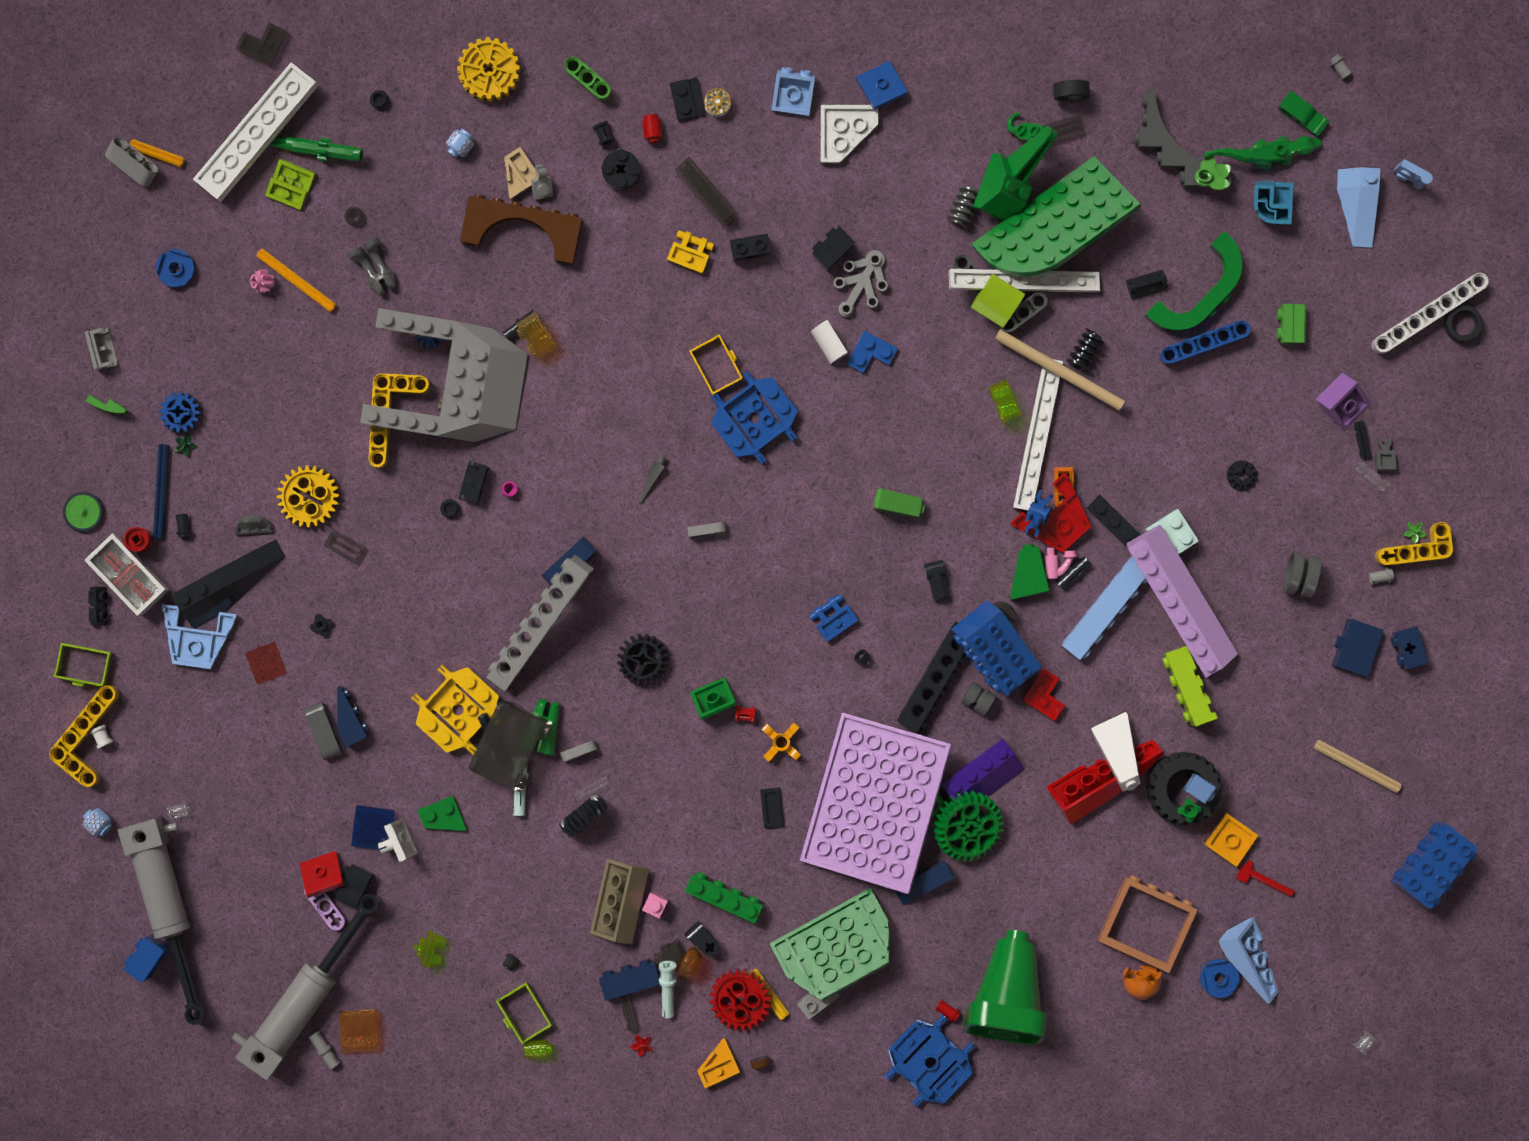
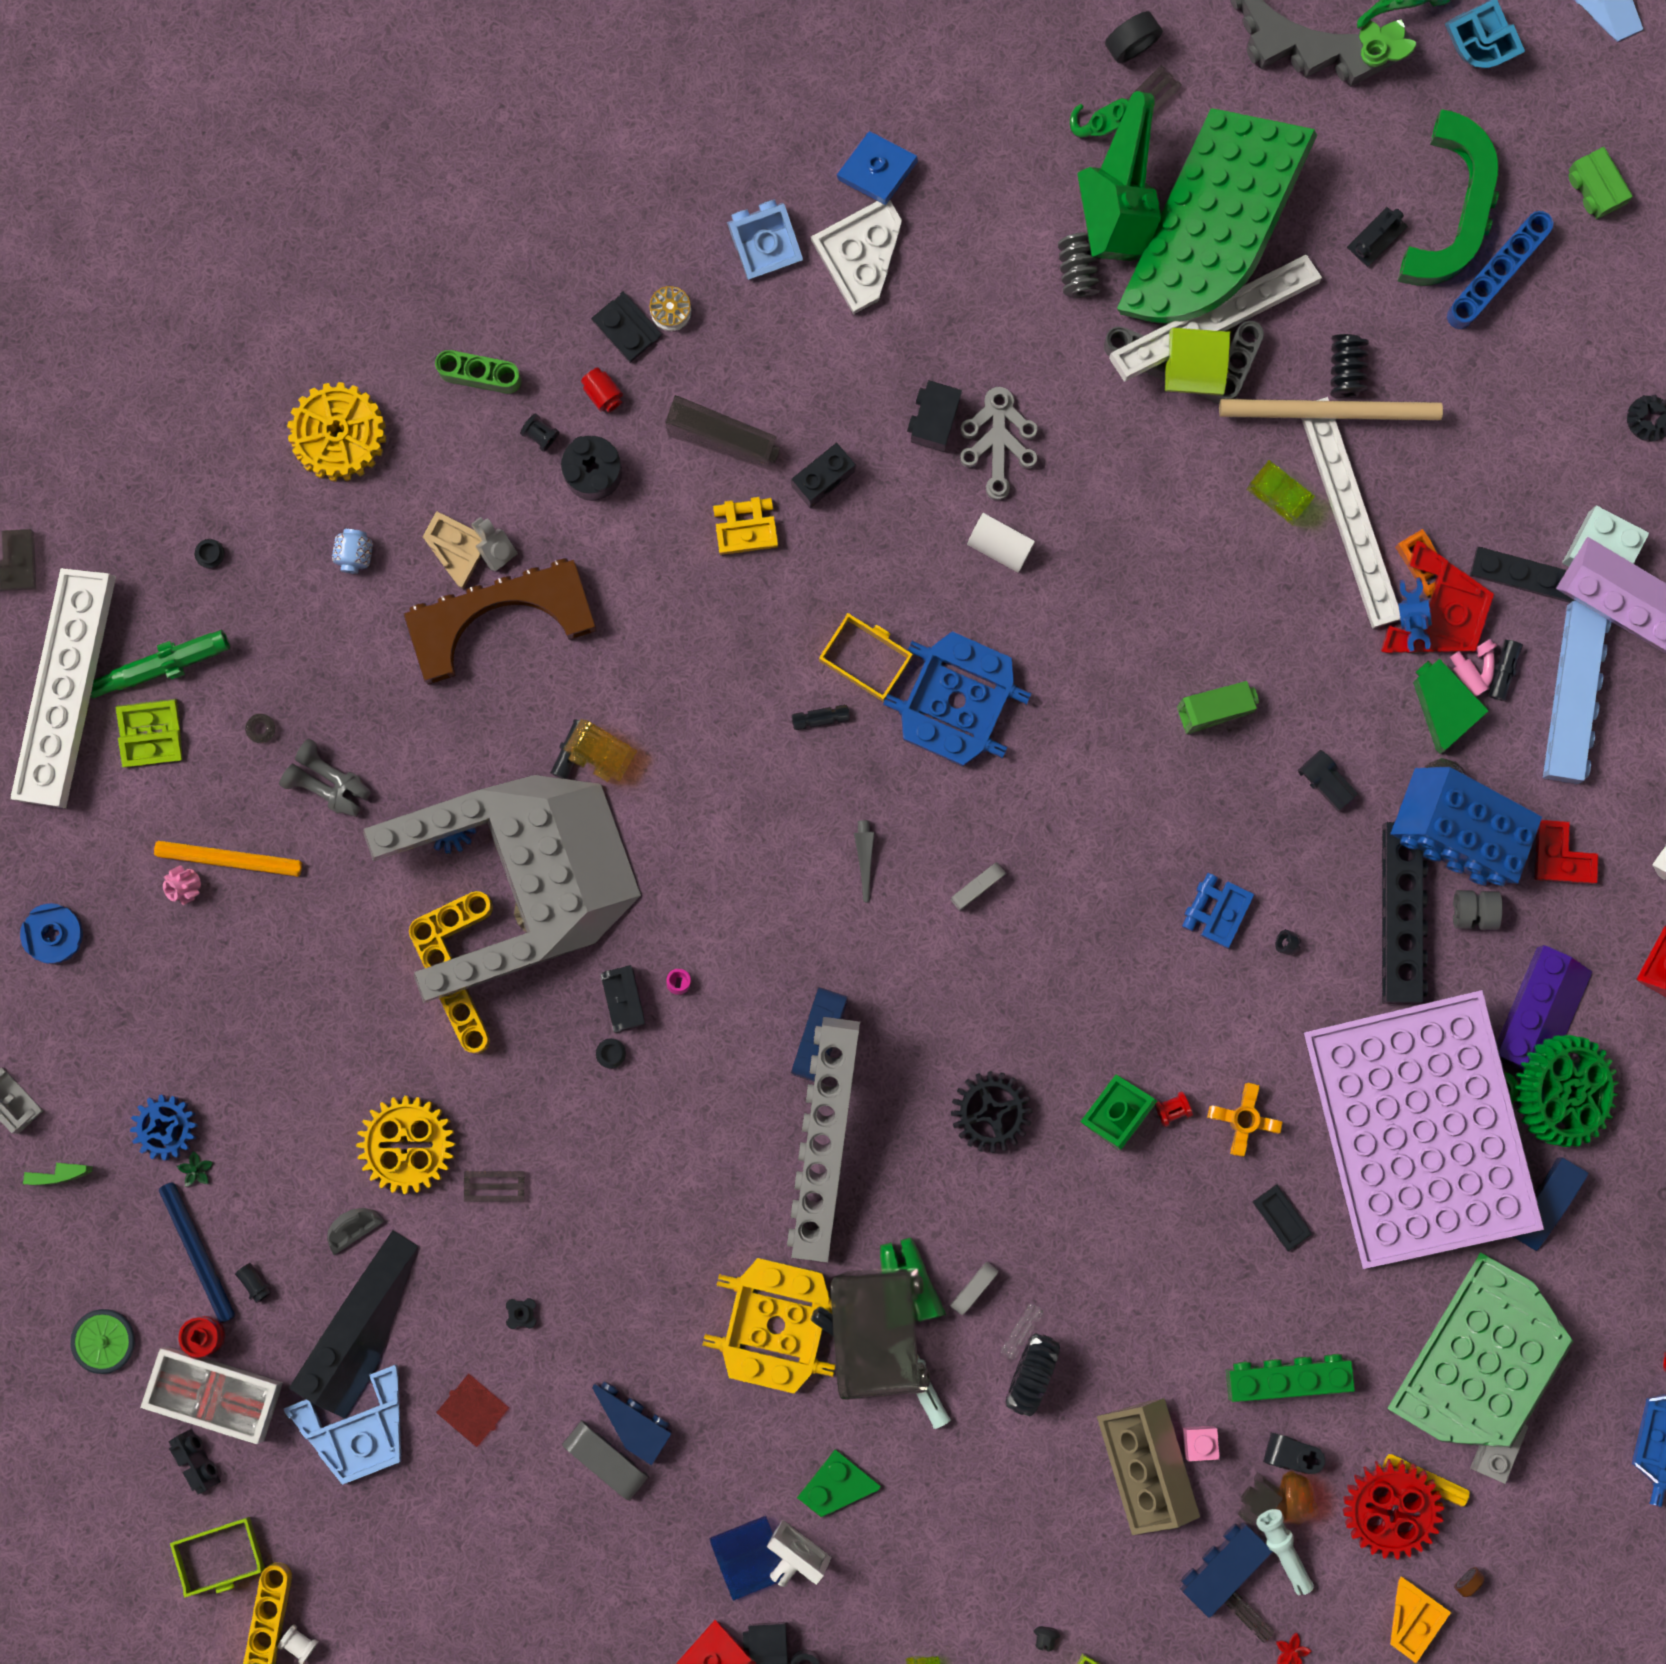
camera: 30 degrees left, 5 degrees down
(672, 384) = (820, 717): none -> black axle
(869, 347) = (1059, 519): blue plate -> none

